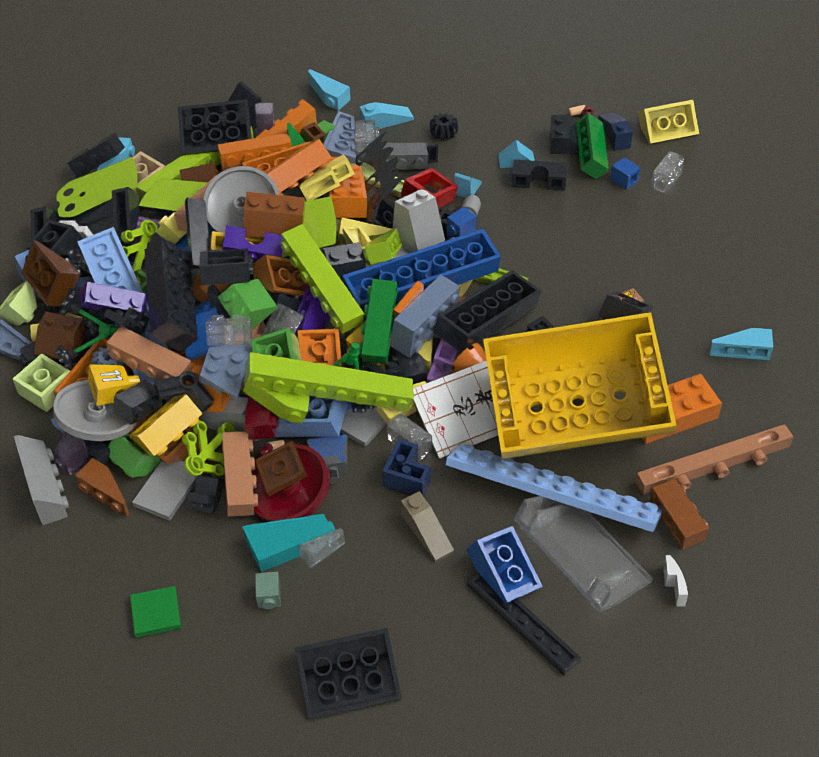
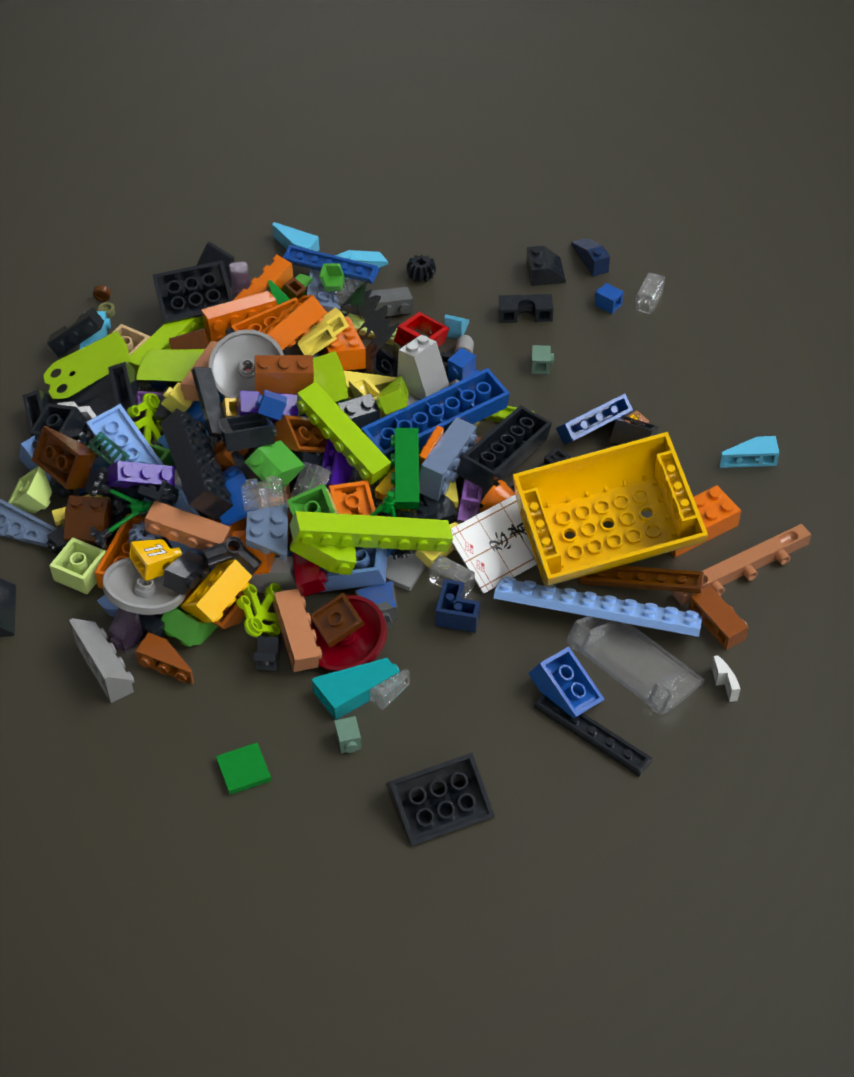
camera: 10 degrees left, 0 degrees up
(81, 261) = (98, 440): none -> clear green slope
(133, 121) = (101, 293): none -> reddish brown tile
(136, 137) = (108, 307): none -> olive tile
(165, 490) = (226, 654): light grey tile -> none
(253, 242) = (271, 404): none -> blue brick
(270, 446) = (319, 602): arm -> none
(352, 126) = (332, 277): none -> bright green panel
(355, 113) = (315, 260): none -> blue tile
(426, 526) = (484, 657): dark tan slope -> none
(432, 153) = (416, 294): black piece -> none
(513, 152) = (496, 287): medium azure slope -> none
(545, 227) = (541, 359): none -> sand green brick
(580, 110) = (556, 239): arm -> none
(586, 291) = (594, 419): none -> brick
(592, 146) = (572, 274): green brick -> none
(611, 463) = (647, 579): none -> reddish brown plate
(668, 121) = (642, 242): light yellow slope -> none

